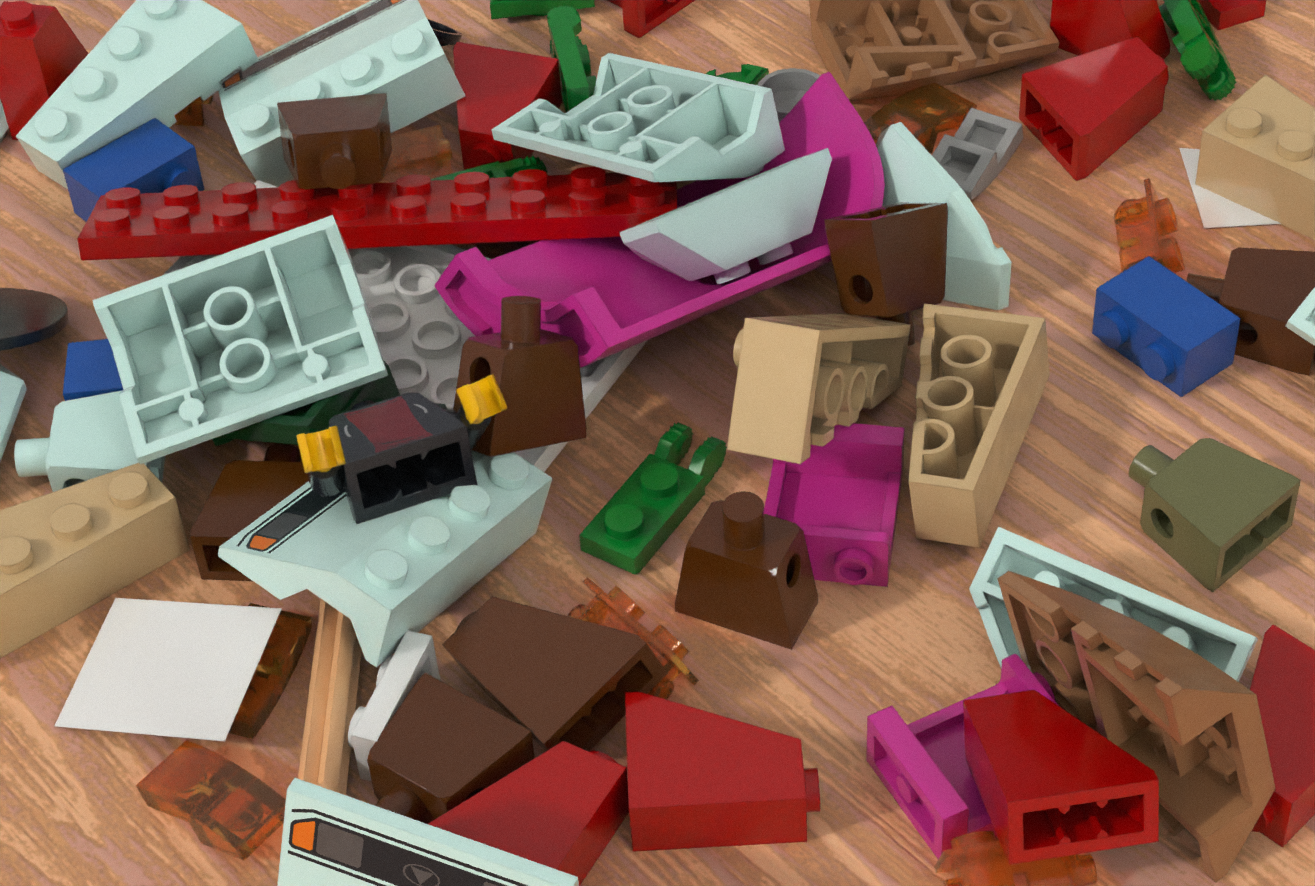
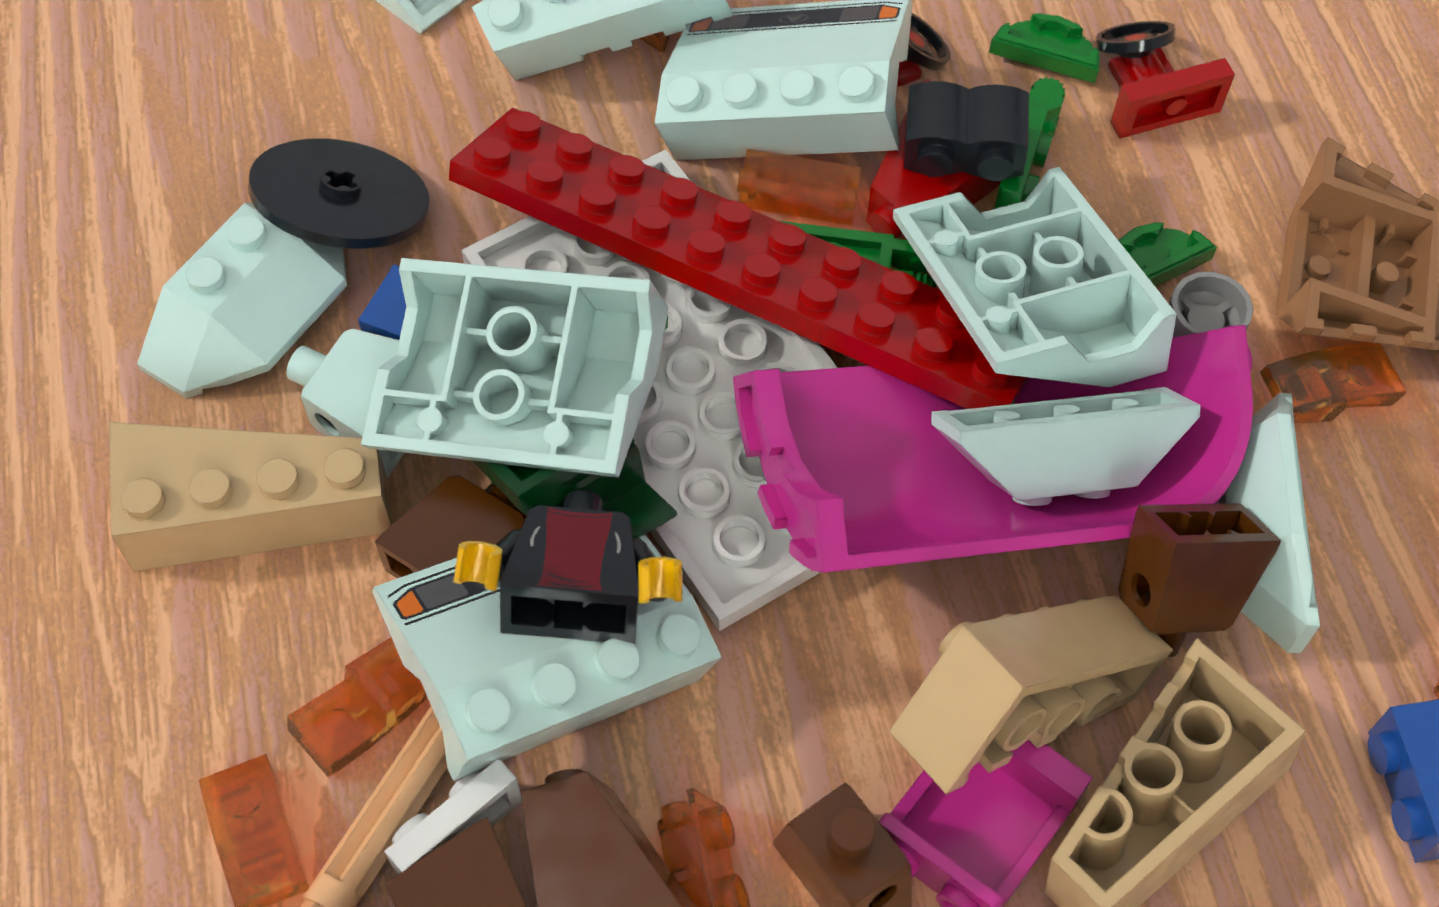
camera: 25 degrees right, 15 degrees up
(142, 159) = (566, 87): blue brick -> none
(169, 668) = (293, 669): white sticker -> none
(336, 140) = (740, 159): reddish brown torso -> none
(516, 54) = (966, 130): none -> black brick
(535, 375) = (735, 551): reddish brown torso -> none
(652, 501) = (818, 710): green hinge -> none
(978, 150) = (1367, 452): light grey slope -> none

